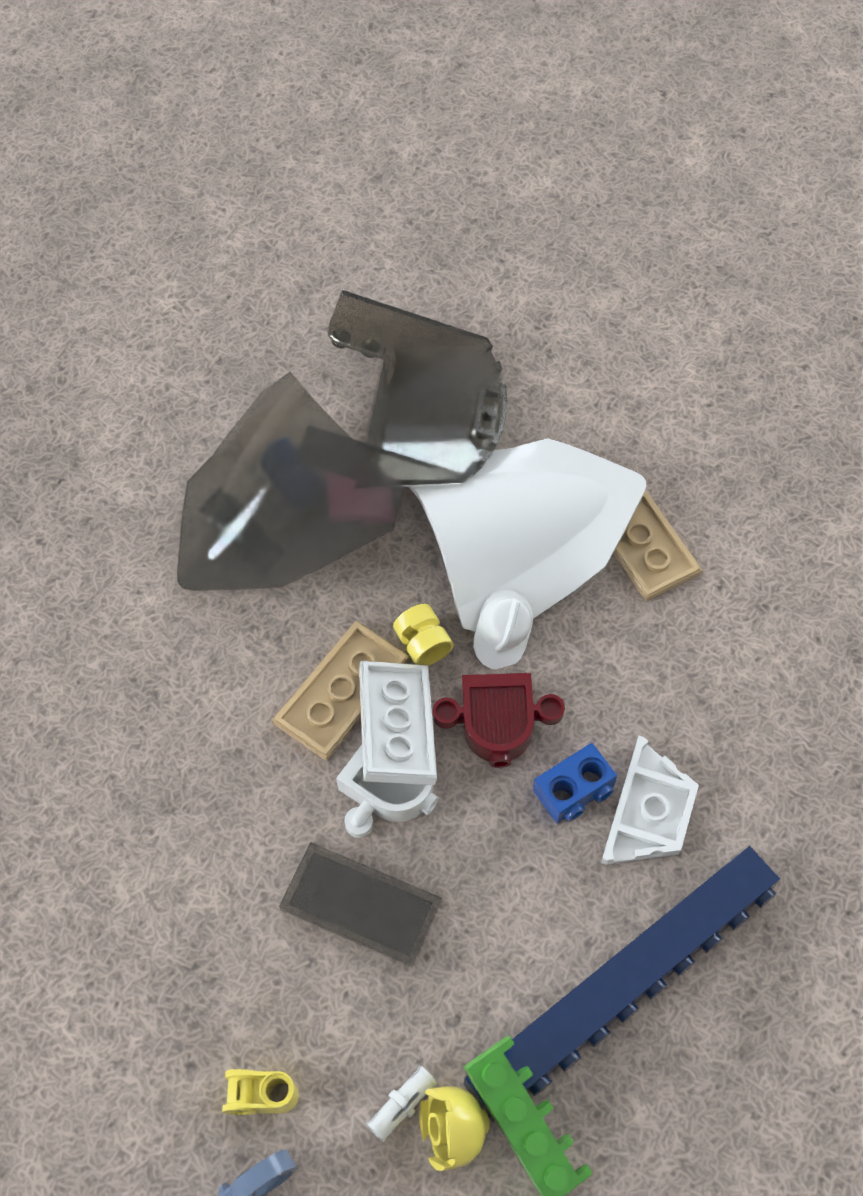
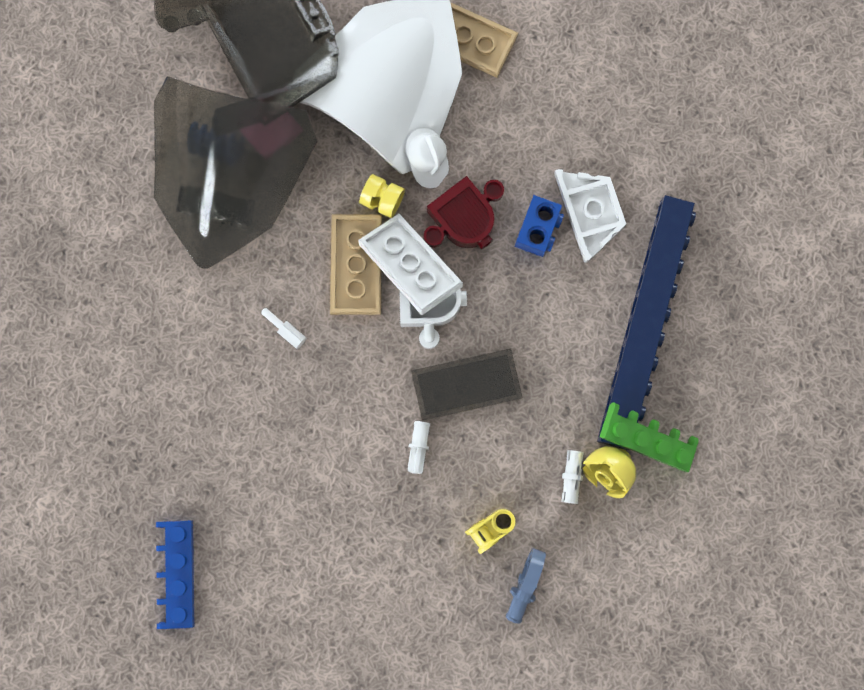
camera: 35 degrees left, 20 degrees up
(212, 705) = (286, 330): none -> white axle
(250, 934) = (418, 447): none -> white axle

